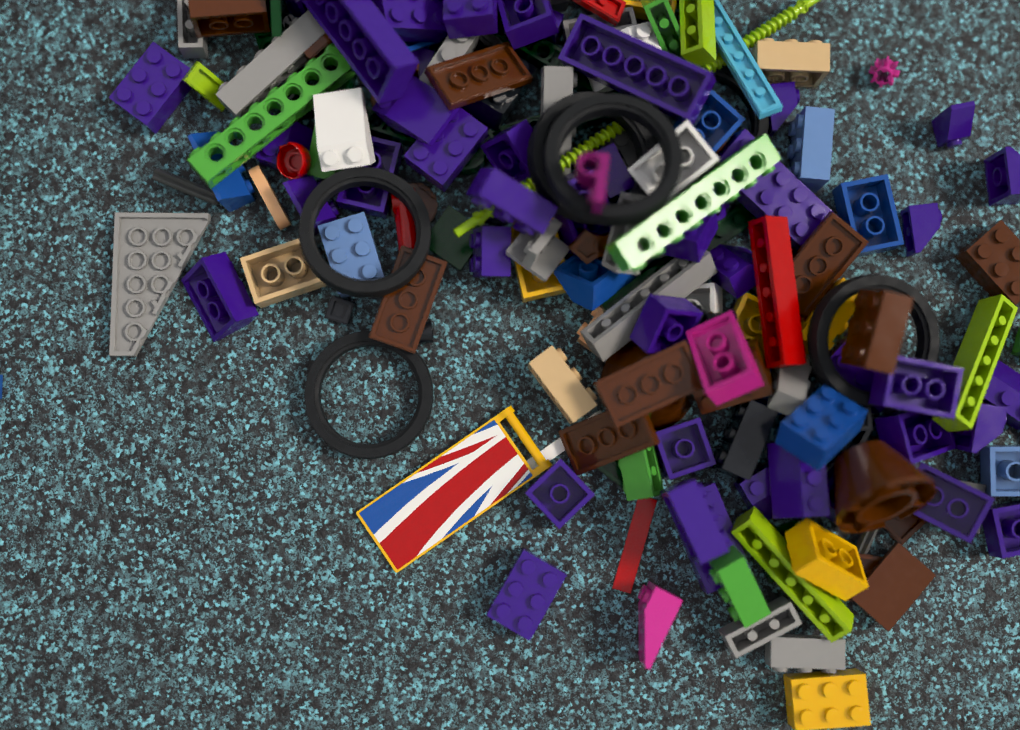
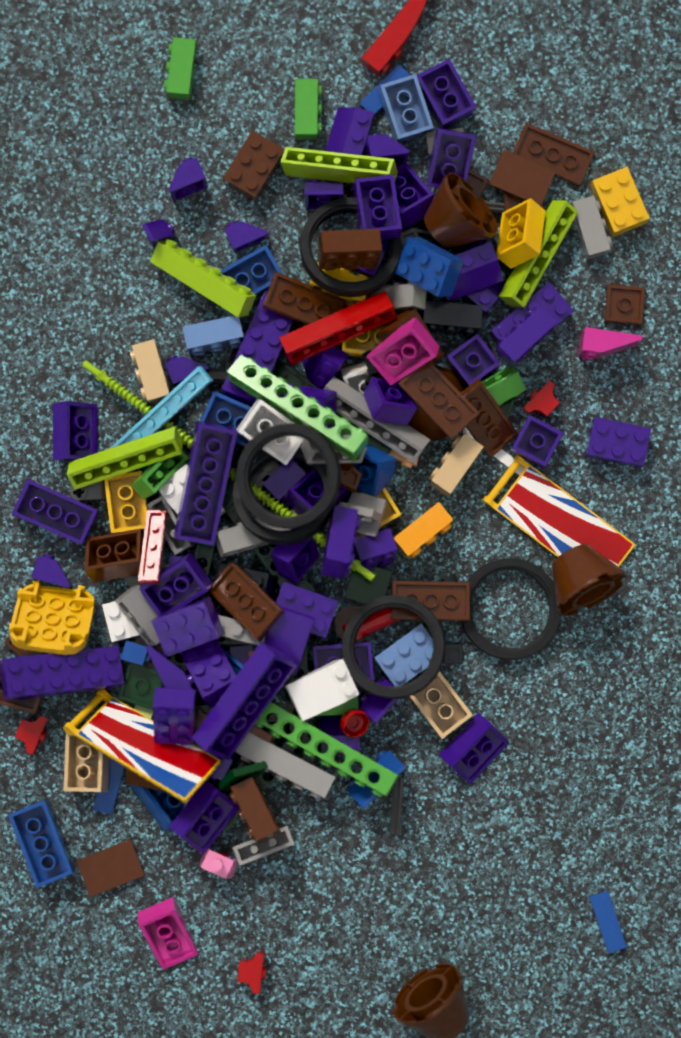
camera: 100 degrees left, 0 degrees up
(147, 263) = (468, 813): light grey wing -> none
(152, 88) = (328, 857): dark purple brick -> none
(204, 83) = (313, 814): lime tile -> none
(269, 197) = (384, 737): light nougat beam -> none
(372, 492) = (584, 579): none -> reddish brown cone
(495, 319) = (423, 531): none -> light orange brick
(594, 180) = (324, 476): magenta plate -> none
(607, 517) = (542, 401): none -> red brick
(634, 545) = (555, 375): red sticker -> none
(694, 661) = (624, 305): none -> reddish brown tile
(738, 587) = (562, 289): bright green brick -> none
(743, 640) = (583, 265): light grey brick -> none
(884, 156) = (203, 278): none -> lime brick
(885, 65) = (131, 297): dark pink gear -> none
(911, 639) = (555, 153): none -> reddish brown tile
(951, 329) = (319, 193): none -> dark purple slope

